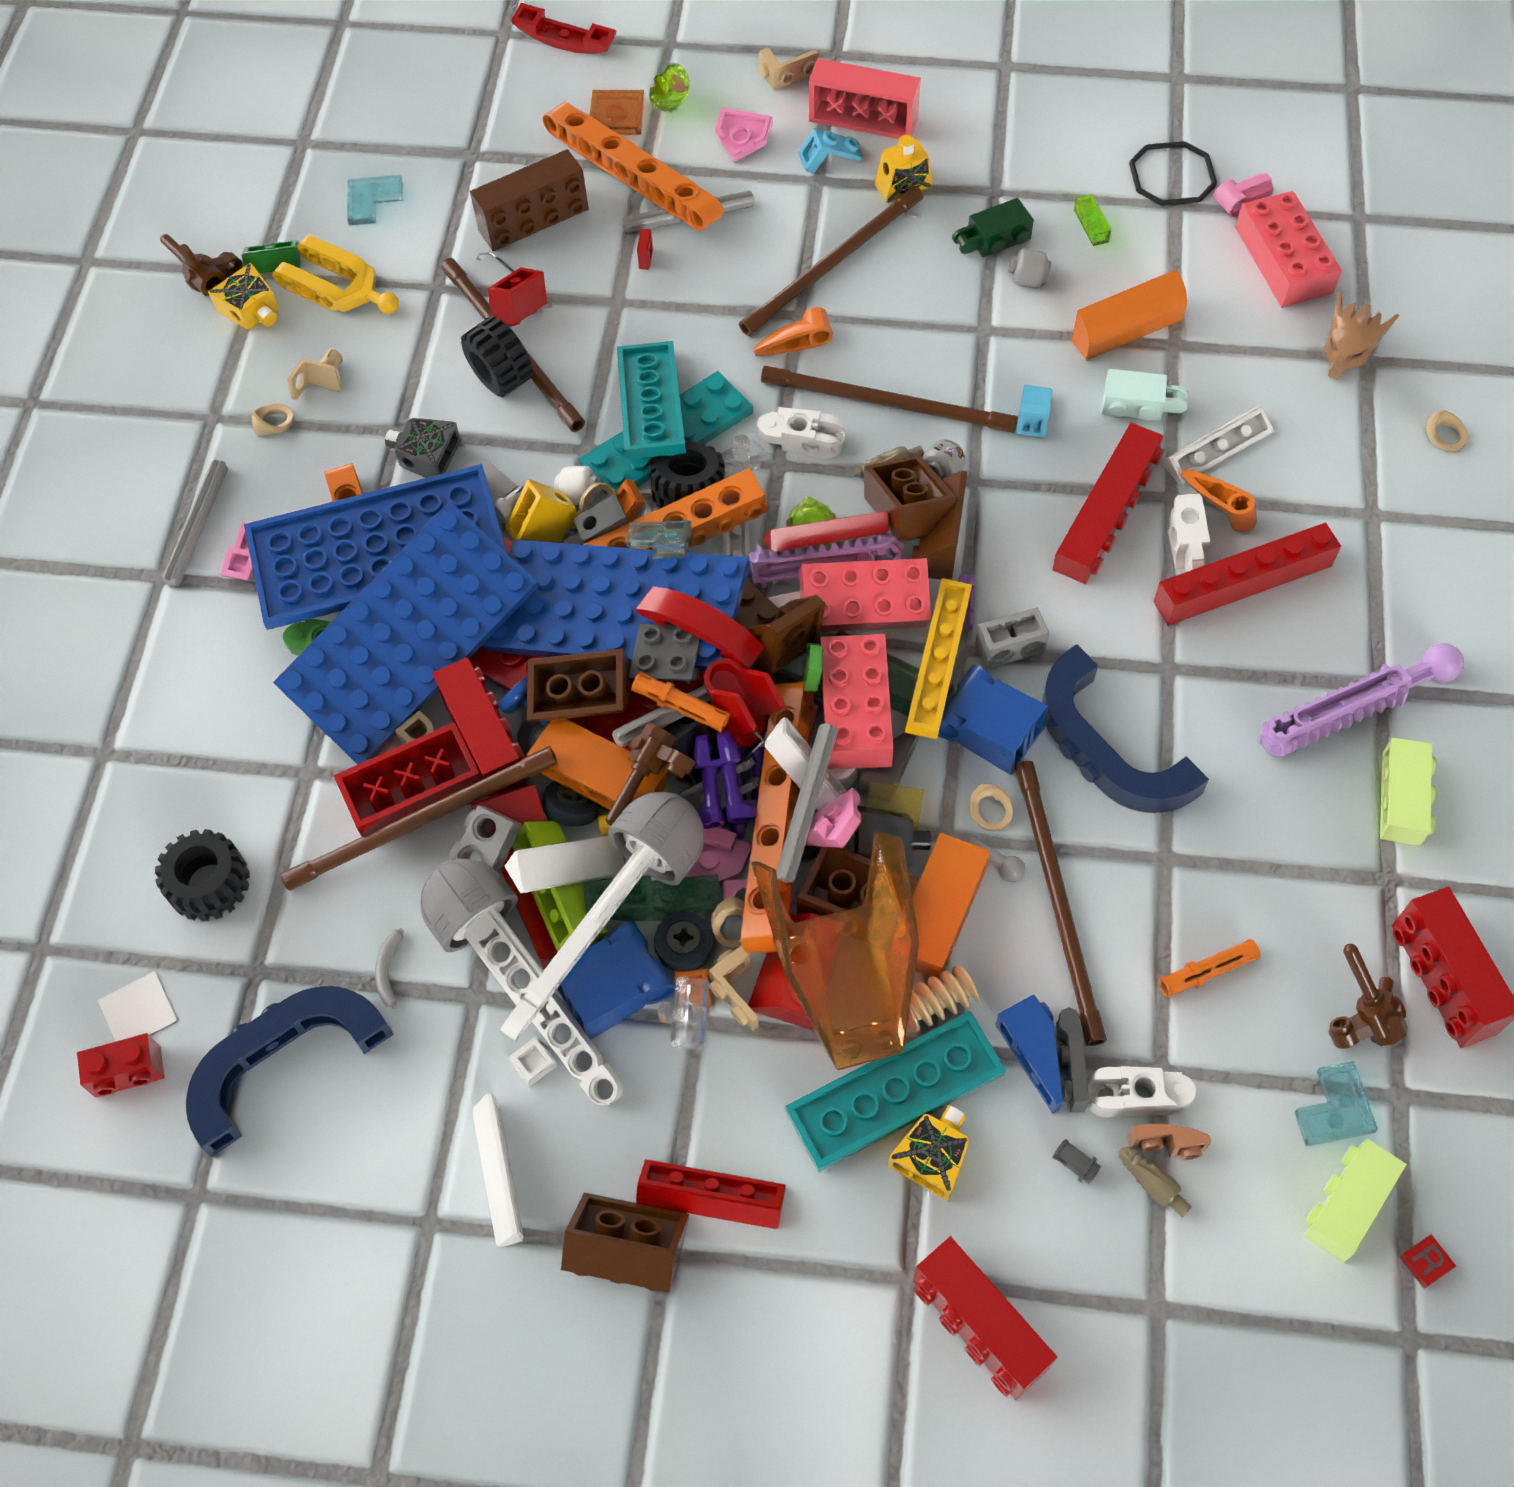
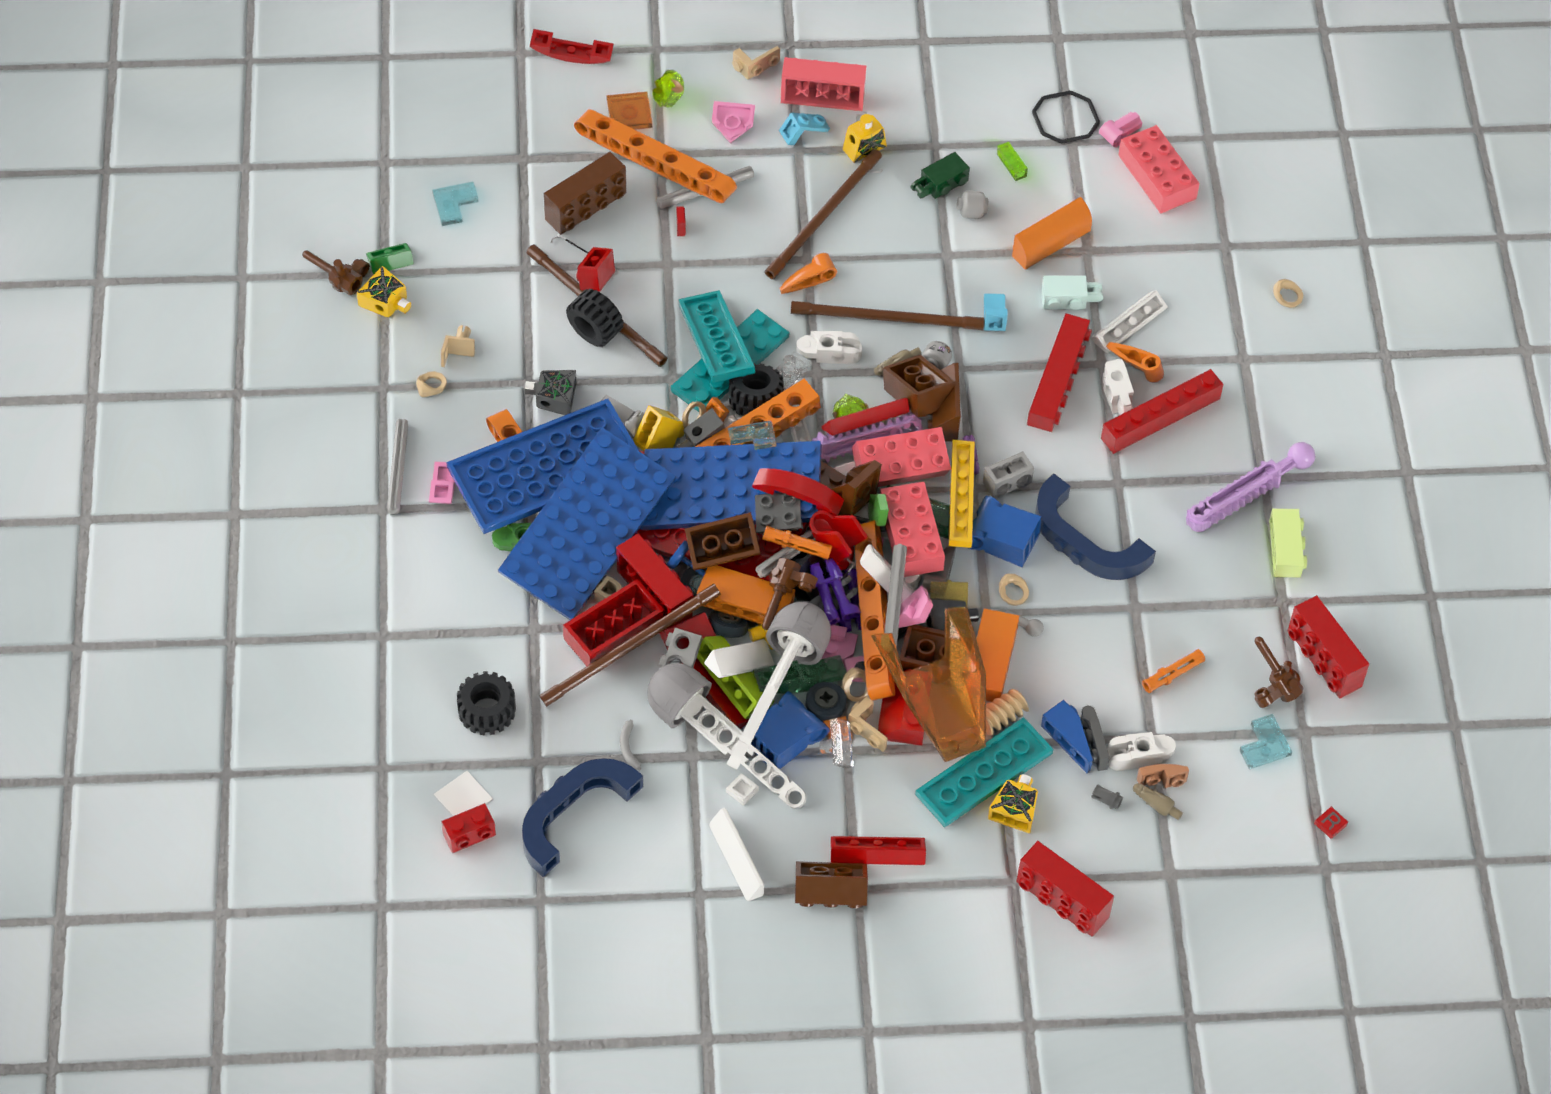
camera: 15 degrees left, 5 degrees down
(327, 294) = (443, 282): yellow piece -> none
(575, 481) = (675, 403): white head -> none
(1088, 1012) = (1101, 709): reddish brown piece -> none
(1351, 335) = (1213, 230): medium nougat piece -> none
(1353, 1199) = (1281, 792): yellowish green brick -> none

